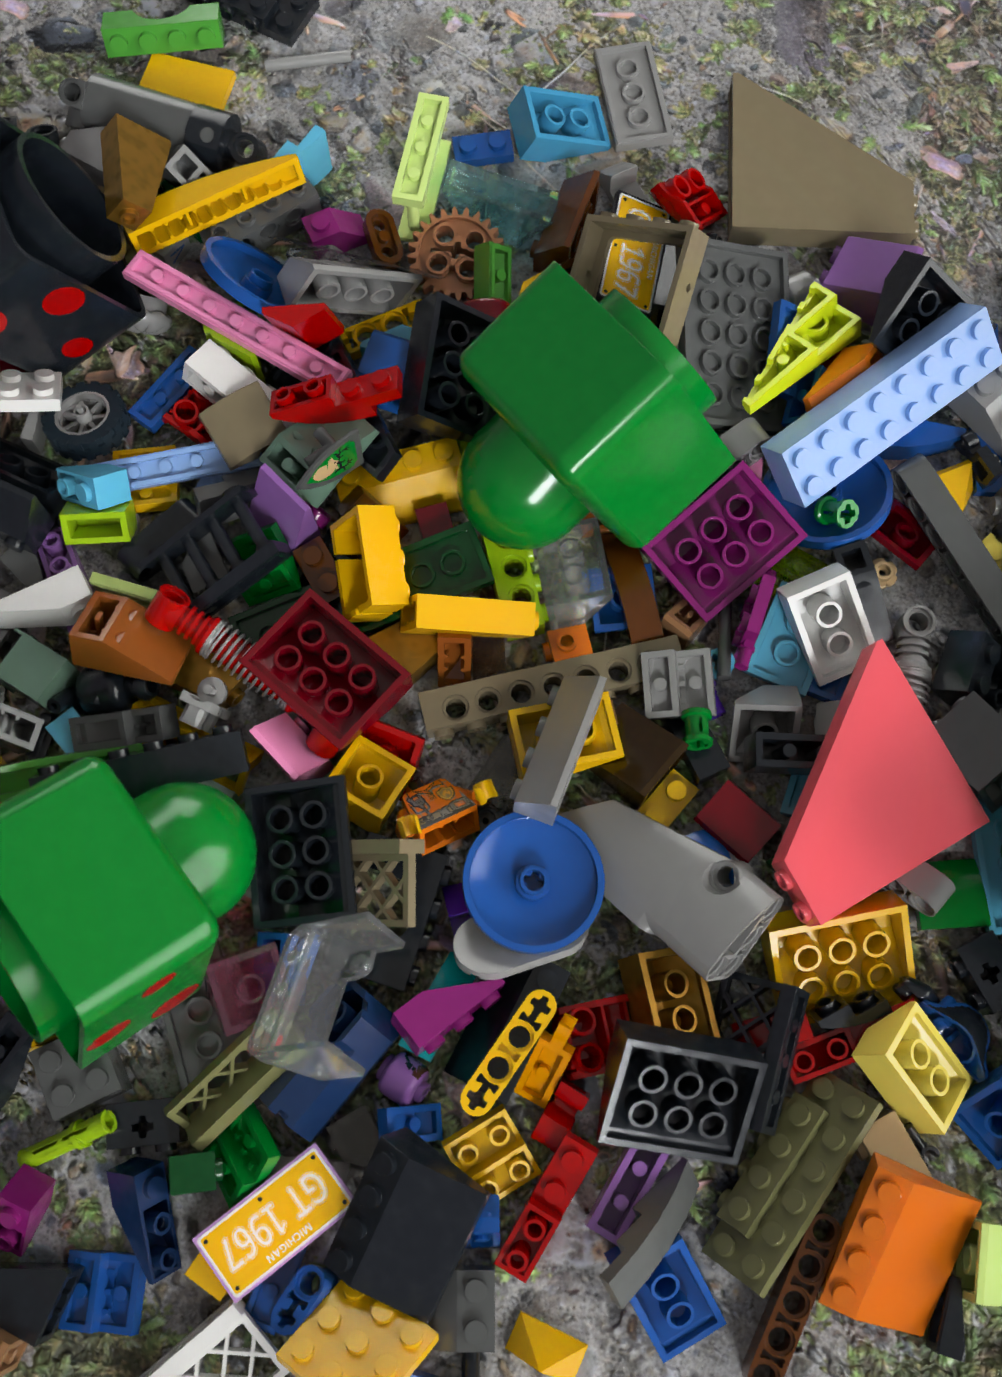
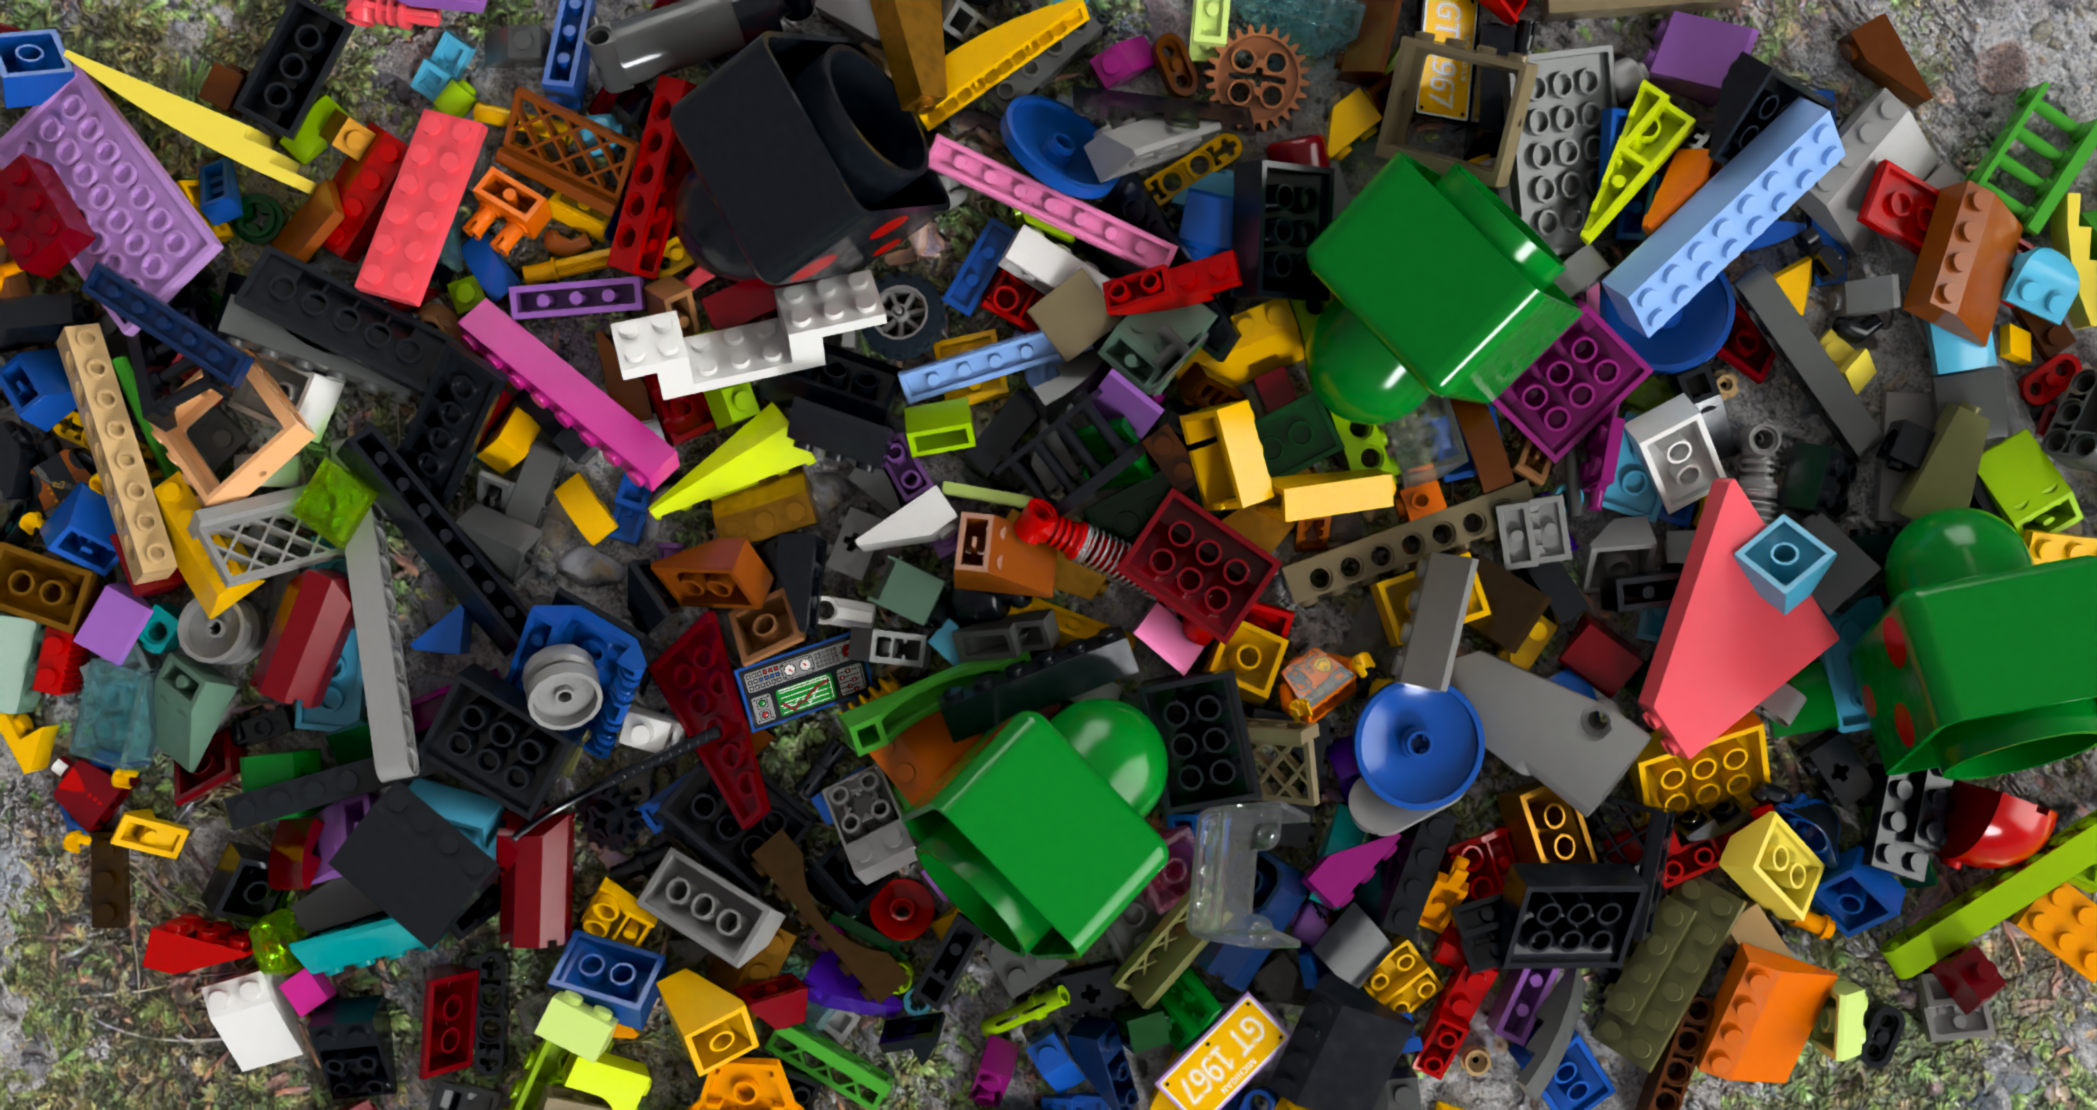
camera: 10 degrees left, 15 degrees up
(90, 1205) = (1054, 1059): none -> blue slope
(94, 485) = (932, 395): medium azure slope -> none
(204, 709) = (1083, 607): light grey hips -> none
(309, 323) = (1122, 205): red slope -> none
(433, 1106) = (1351, 946): none -> black slope
(492, 271) = (1299, 102): bright green slope -> none
(506, 1050) = (1416, 899): yellow beam -> none
(577, 1269) = (1479, 1067): none -> tan plate
(578, 1104) = (1479, 932): none -> black slope
(697, 728) = (1556, 576): green bush -> none
(830, 504) = (1679, 337): green bush -> none
(930, 727) = (1784, 563): none -> medium azure slope
(947, 1322) = (1807, 1075): black slope -> none
(959, 1146) = (1816, 924): none -> light orange pin

